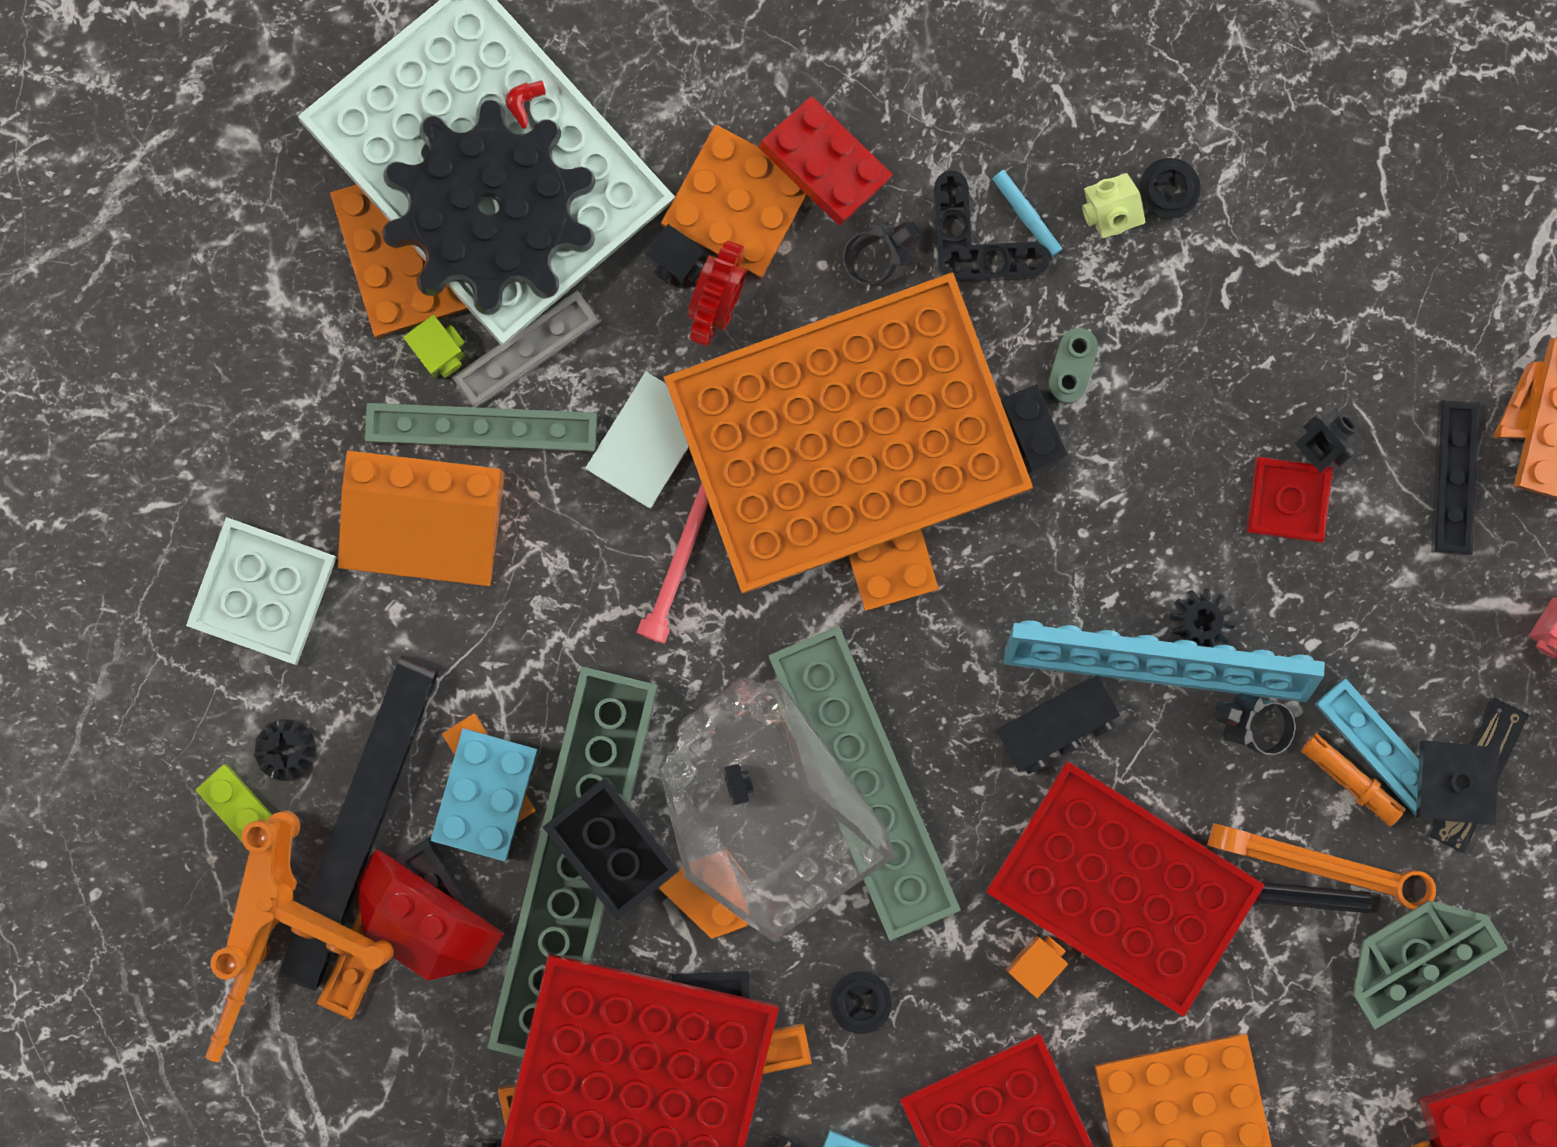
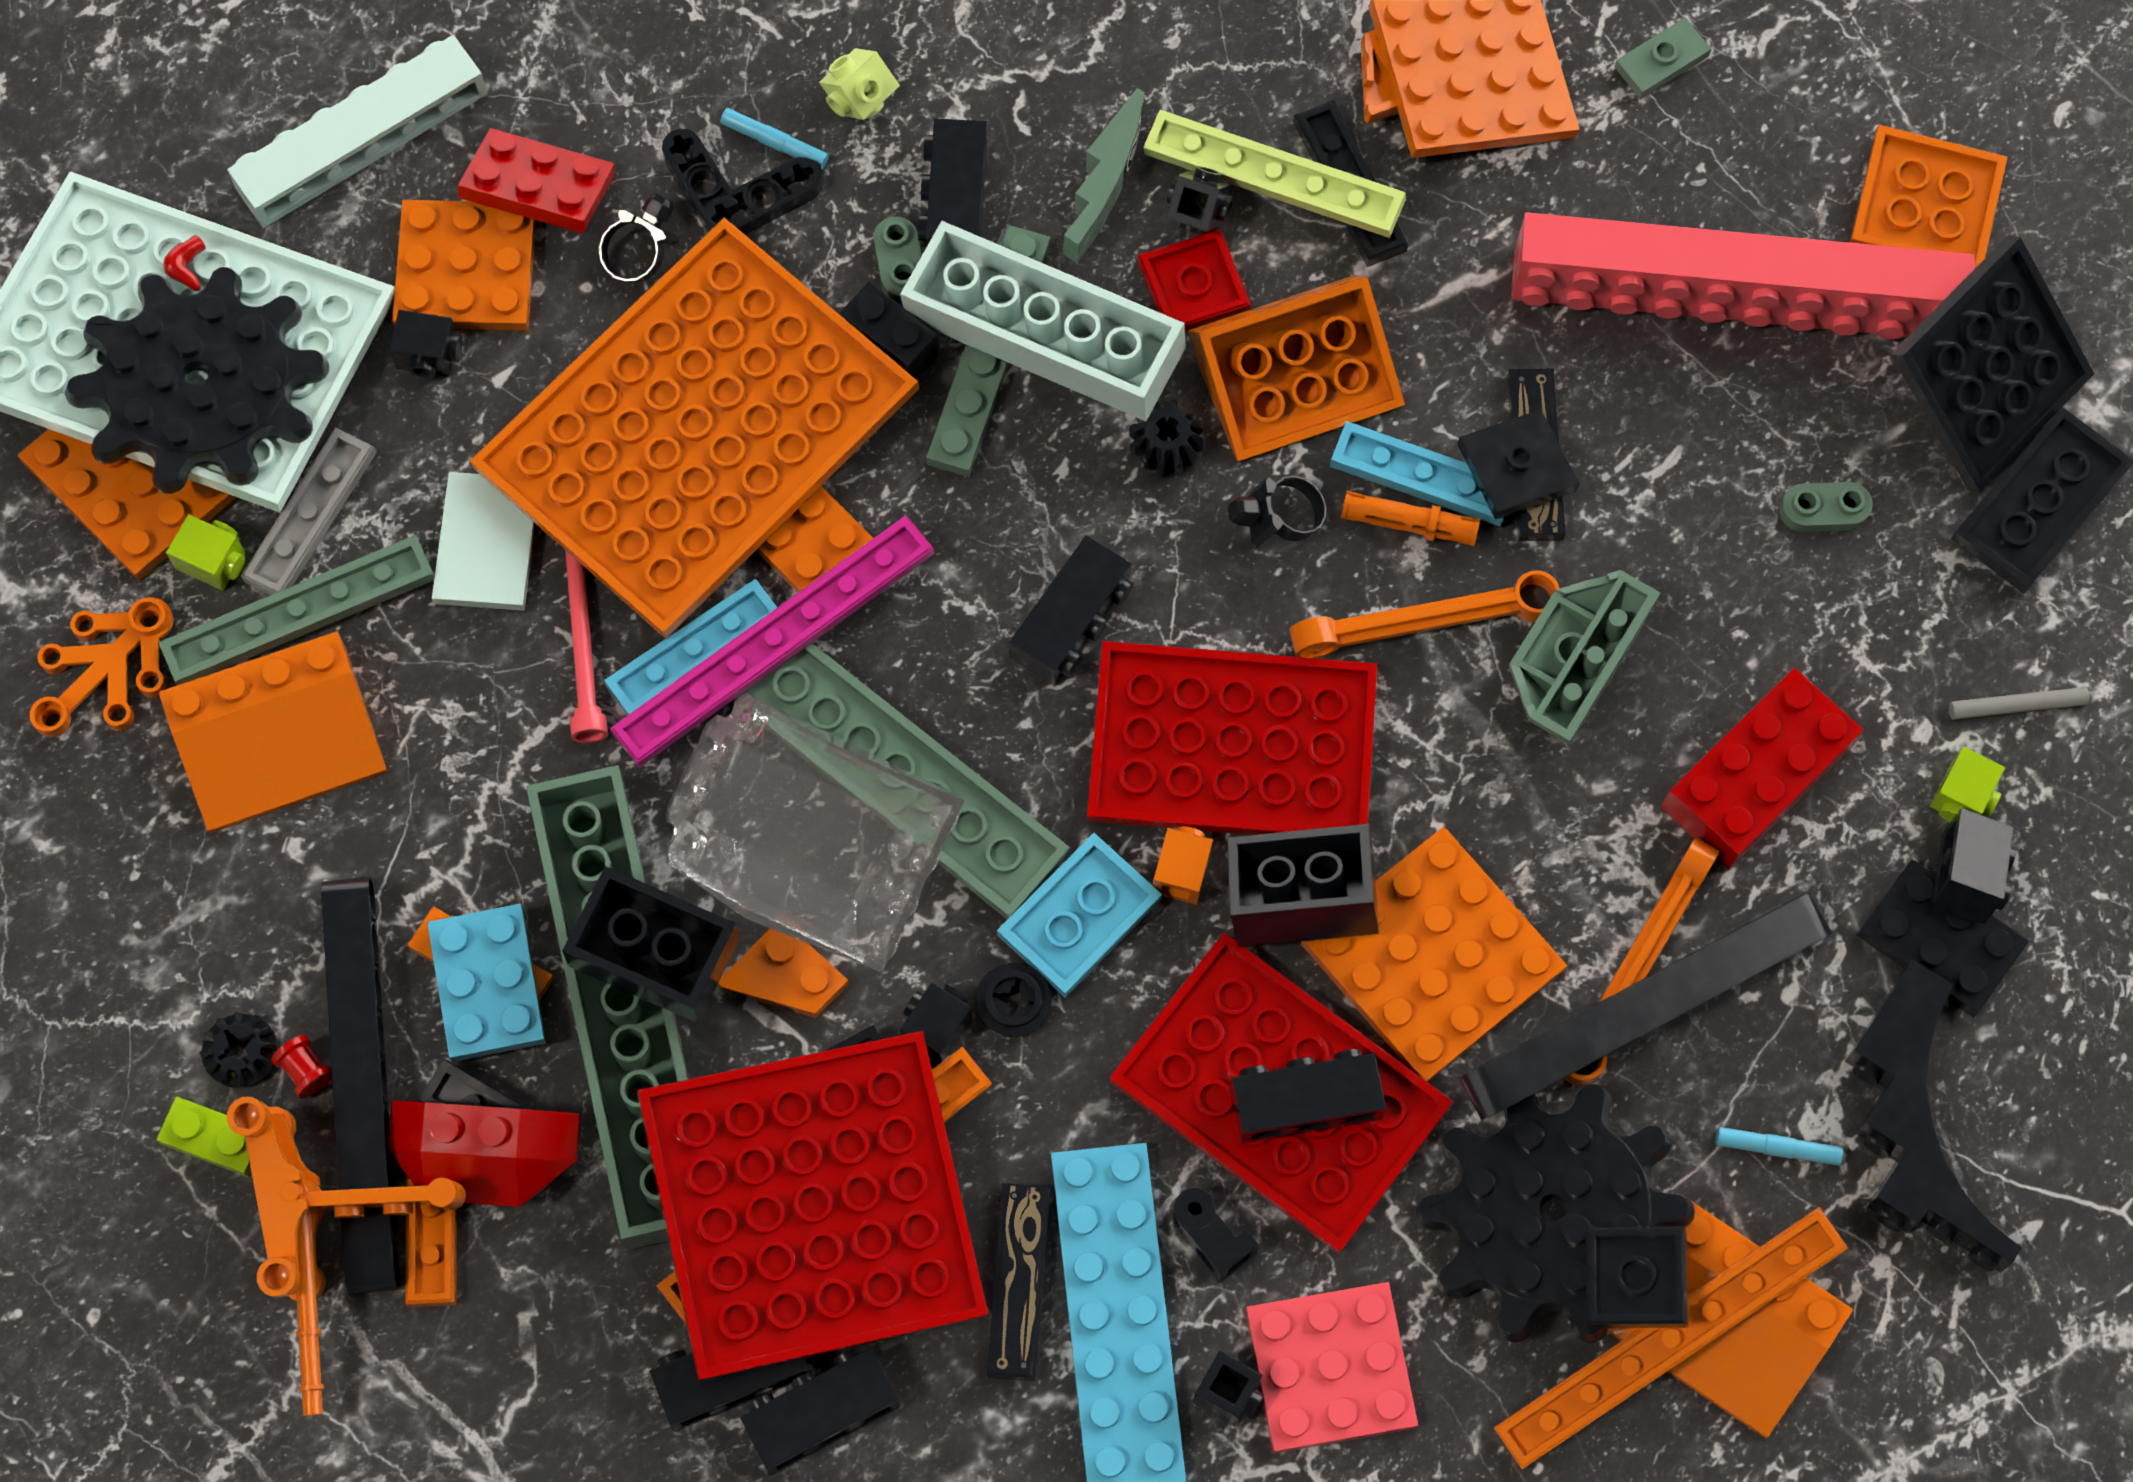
camera: 25 degrees left, 15 degrees down
(261, 591) = (132, 893): light aqua plate -> none
(323, 788) = (302, 1066): none -> red bush
(324, 395) = (106, 661): none -> orange plant
(708, 47) = (357, 130): none -> light aqua brick
(716, 293) = (484, 348): red gear -> none
(737, 783) = (759, 832): black plate -> none
(760, 609) = (688, 647): none -> medium azure plate
(796, 991) = (941, 1017): none -> black brick
(822, 636) = (772, 641): none -> dark pink tile
(942, 963) = (1079, 915): none -> medium azure plate
(1103, 475) = (976, 384): none -> sand green plate
(1116, 1035) = (1302, 885): none -> black brick
(1144, 330) = (955, 177): none -> black brick
(1154, 488) = (1044, 320): none -> light aqua brick
(1162, 662) = (1145, 492): medium azure plate -> none
(1184, 178) = (920, 34): black gear -> none
(1275, 371) = (1108, 167): none -> sand green slope
(1315, 898) = (1438, 655): black axle -> none
(1336, 609) = (1298, 366): none -> orange slope
(1399, 445) = (1276, 173): none -> yellowish green plate

